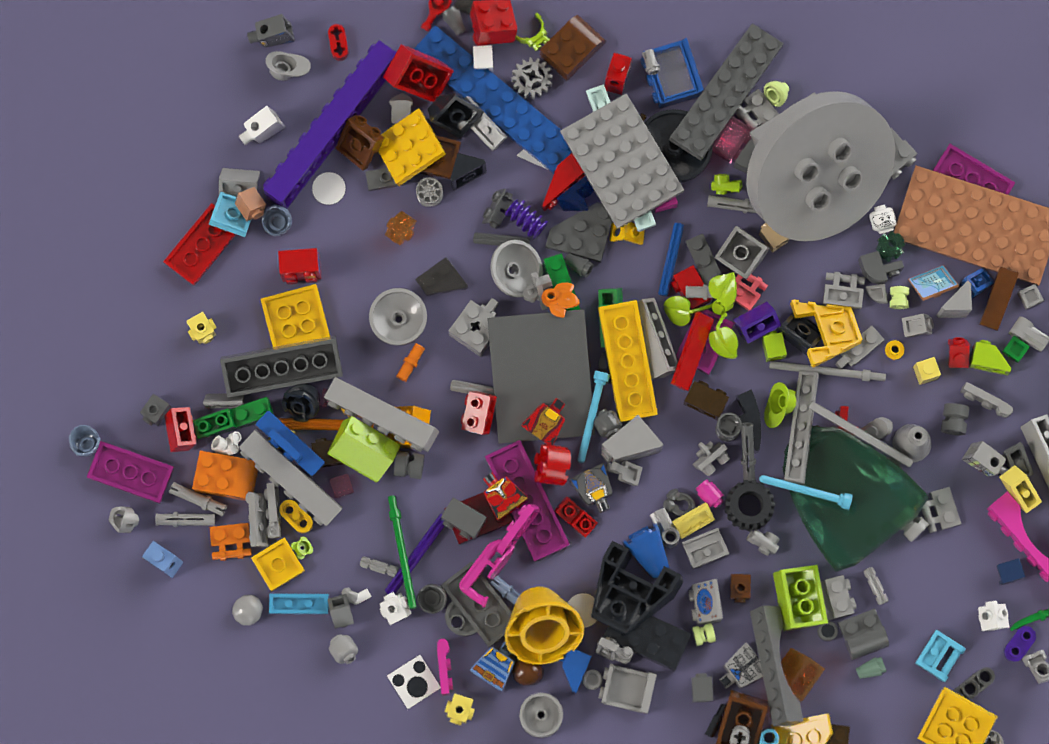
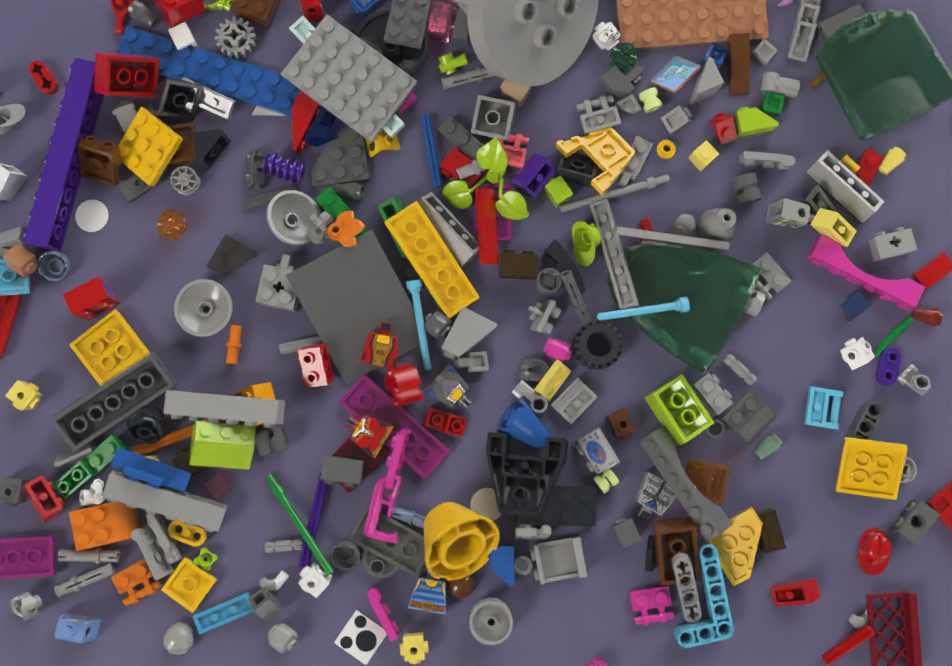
camera: 30 degrees left, 5 degrees up
(766, 542) = (626, 372): light grey plate -> none

